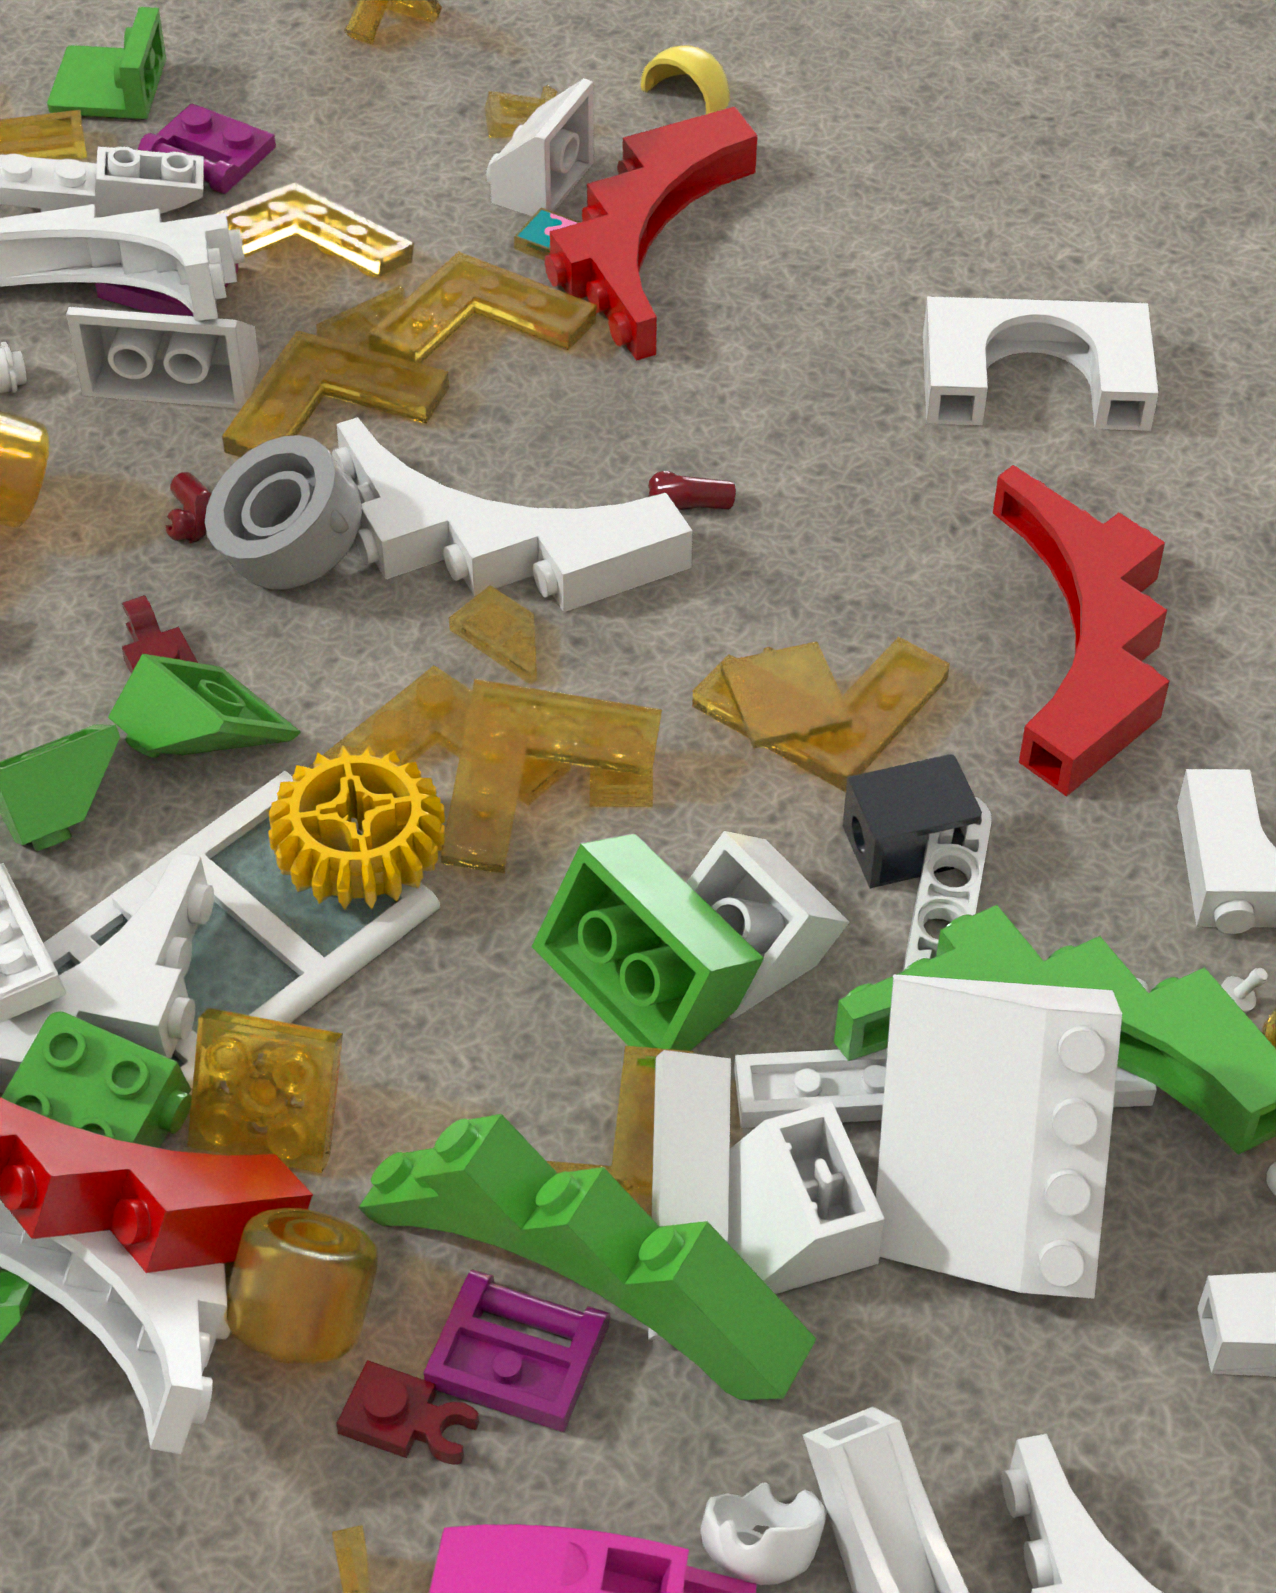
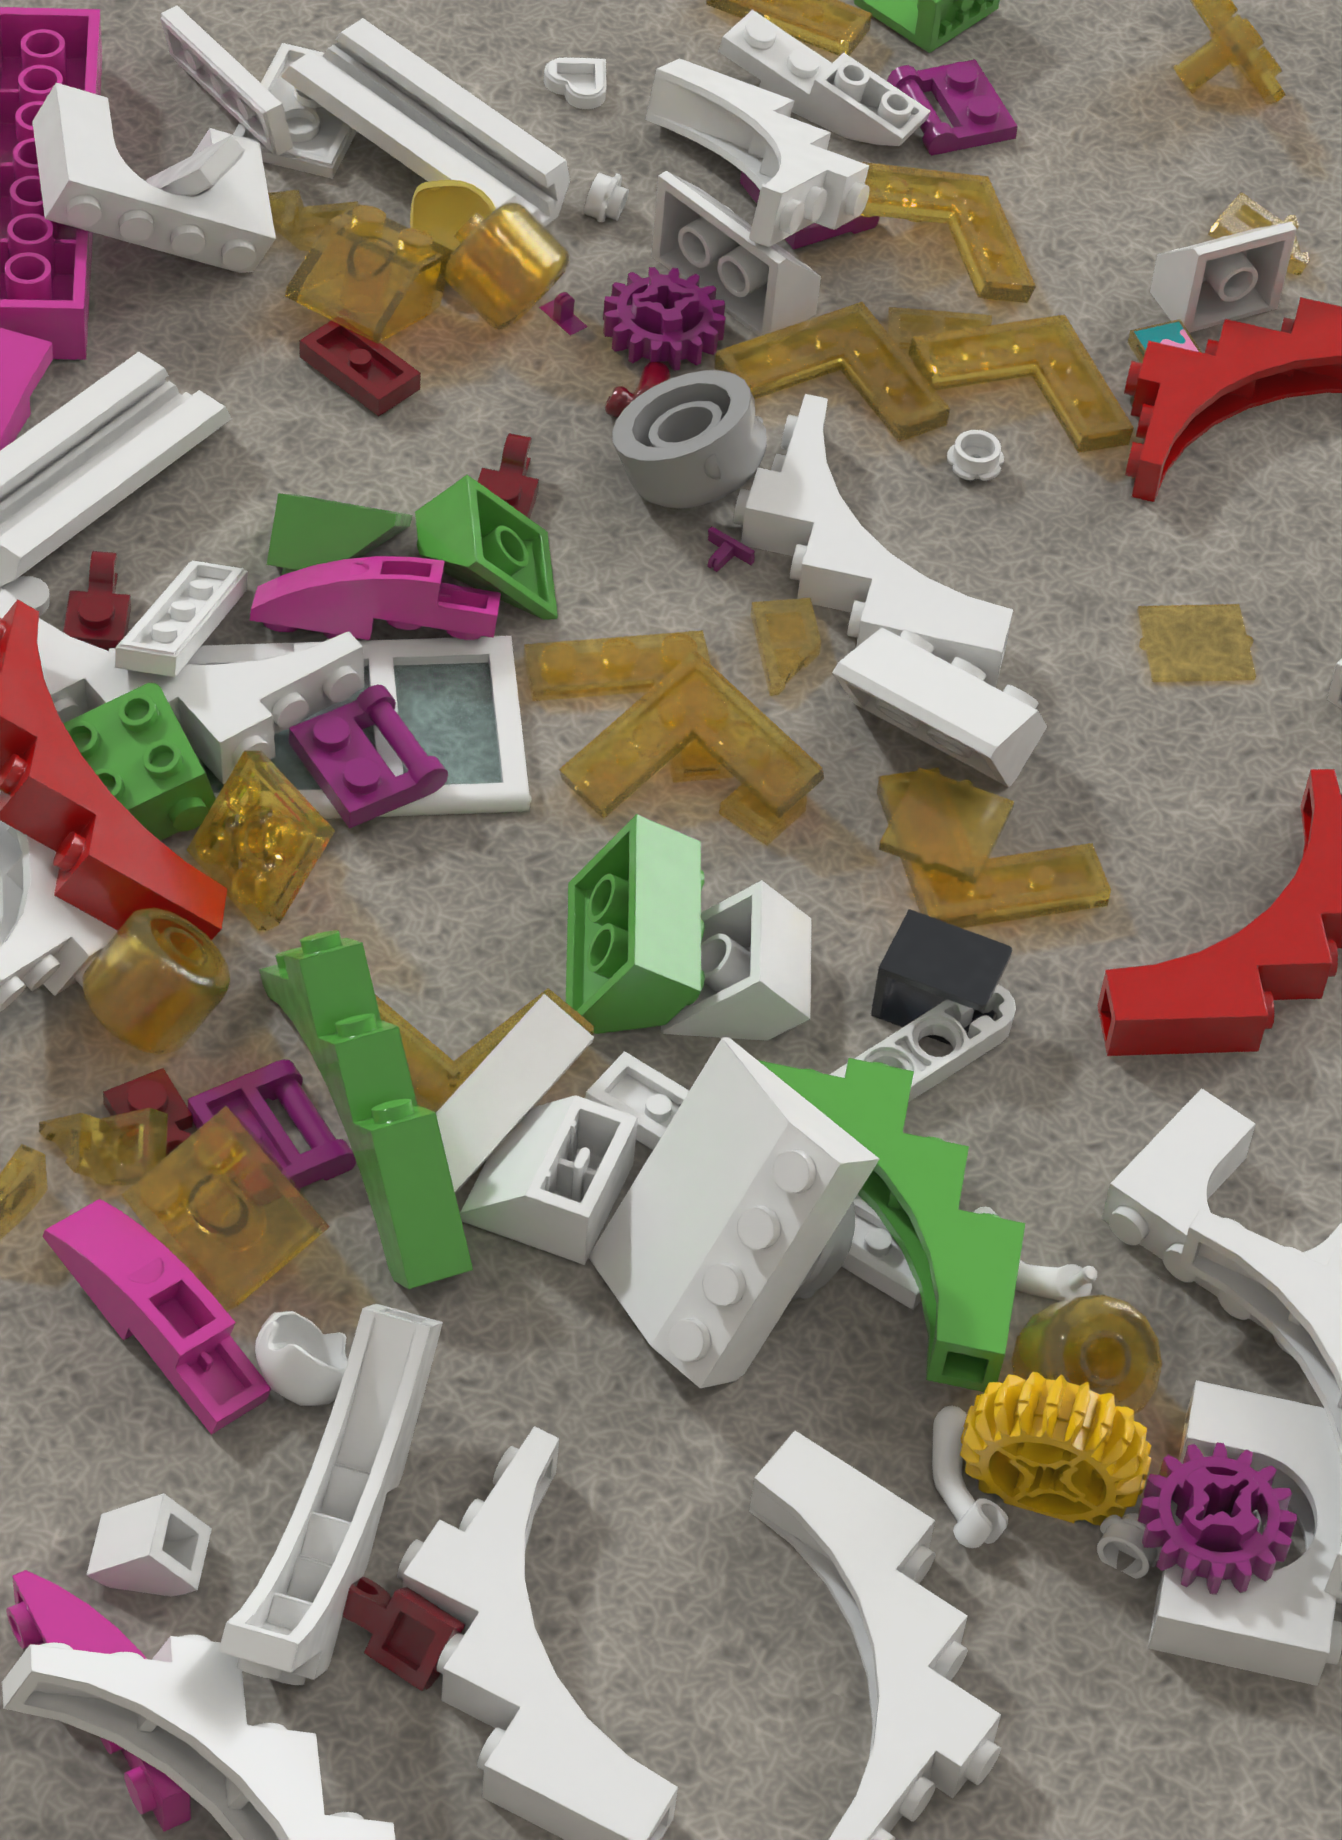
camera: 35 degrees right, 0 degrees up
(56, 481) = (562, 312): none -> magenta piece
(129, 818) = (357, 590): none -> dark pink slope
(151, 435) = (664, 318): none -> magenta gear
(269, 971) = (350, 766): none -> magenta plate
(321, 844) = (524, 701): yellow gear -> none
(383, 586) = (727, 550): none -> magenta piece
(397, 1469) = (111, 1148): none -> clear yellow slope
(499, 397) = (976, 456): none -> white plate
(570, 1448) = (226, 1209): none -> clear yellow slope
(692, 599) = (943, 703): none -> white slope
(693, 492) = (1041, 621): dark red arm -> none
(796, 440) = (1196, 643): none -> clear yellow piece

